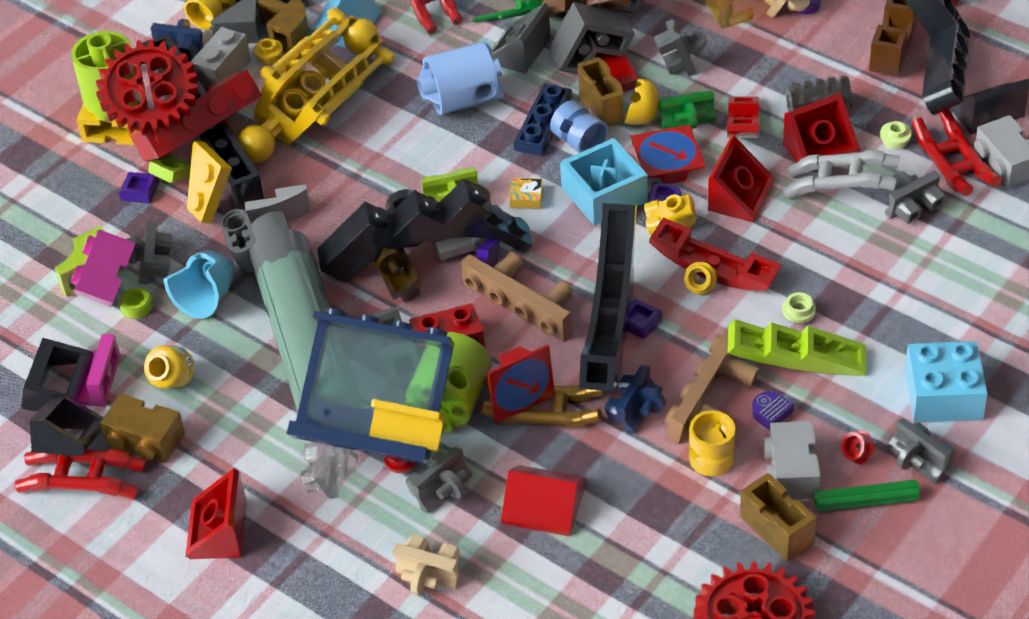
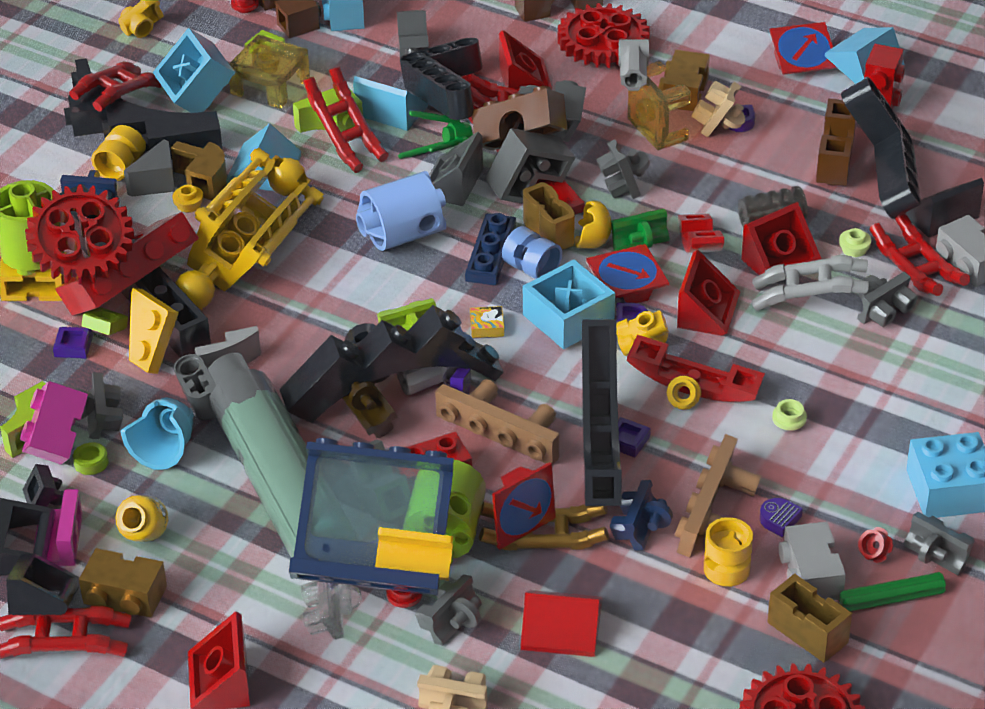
camera: 10 degrees left, 5 degrees down
(85, 329) = (42, 487): none -> black tile
(222, 55) = (145, 201): light grey brick -> none
(804, 350) = (801, 455): lime slope -> none

